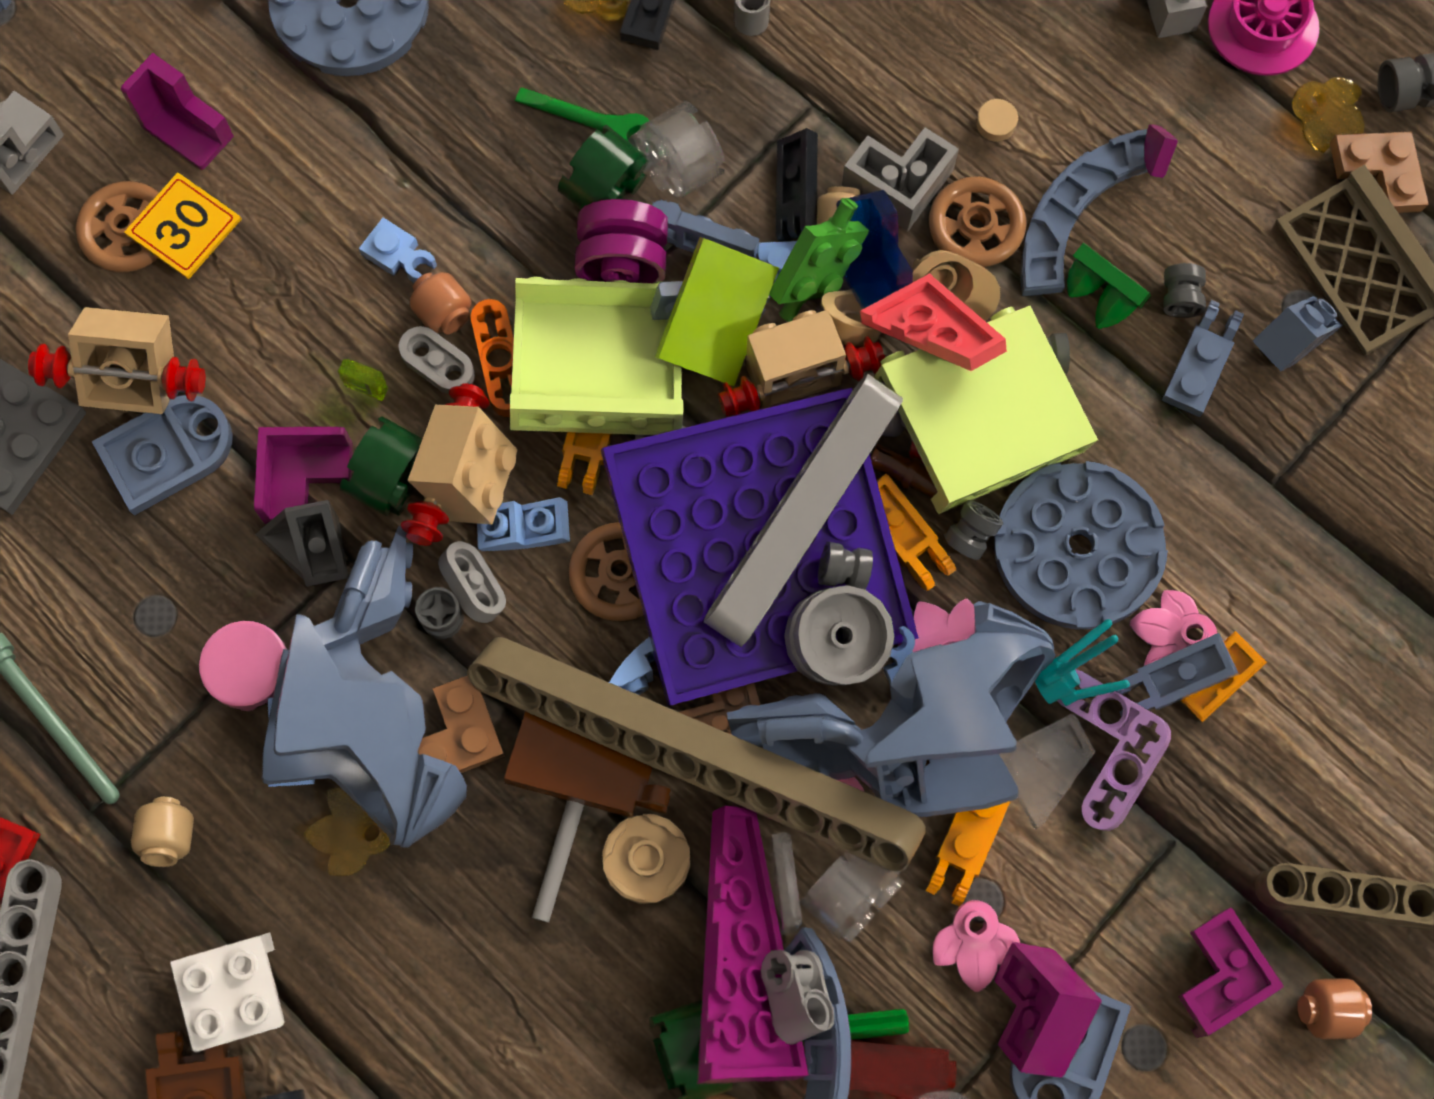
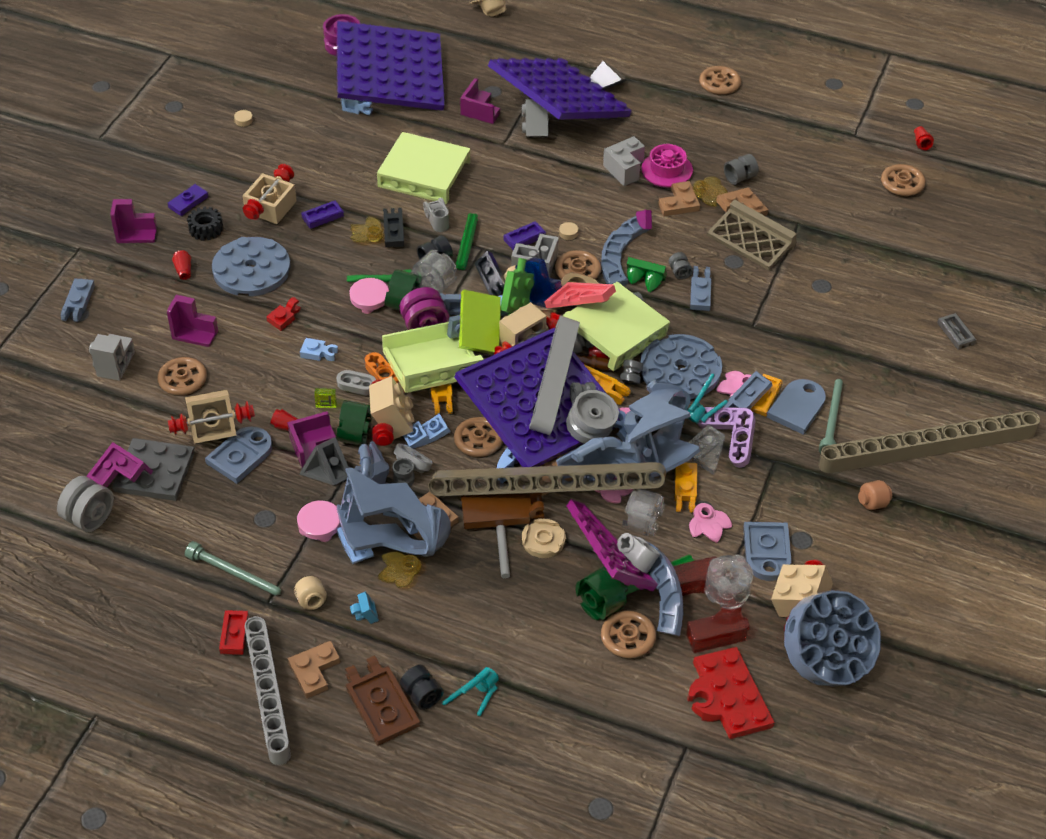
camera: 20 degrees left, 25 degrees down
(100, 989) = (308, 668): none -> medium nougat plate
(183, 225) = (212, 364): yellow piece -> none
(228, 992) = (372, 638): white bracket -> none
(250, 905) = (365, 608): none -> dark azure tile
(268, 405) = (280, 419): none -> red cone
(360, 147) = (281, 316): none -> red plate
(440, 302) = (348, 359): nougat head -> none
(540, 150) = (368, 294): none -> bright pink tile
(709, 90) = (439, 243): none -> black wheel
(784, 80) = (466, 242): none -> green axle
(785, 883) = (611, 514): clear tile -> none
(902, 105) = (524, 235): none -> dark purple plate
(1050, 1010) = (752, 530): magenta panel -> none
(1239, 979) = (828, 495): magenta panel -> none
(1263, 122) = (682, 202): none -> medium nougat plate
(1275, 723) = (797, 407): none -> sand blue tile
(1295, 843) = (829, 437): none -> sand green piece
(1297, 332) = (736, 265): sand blue slope -> none

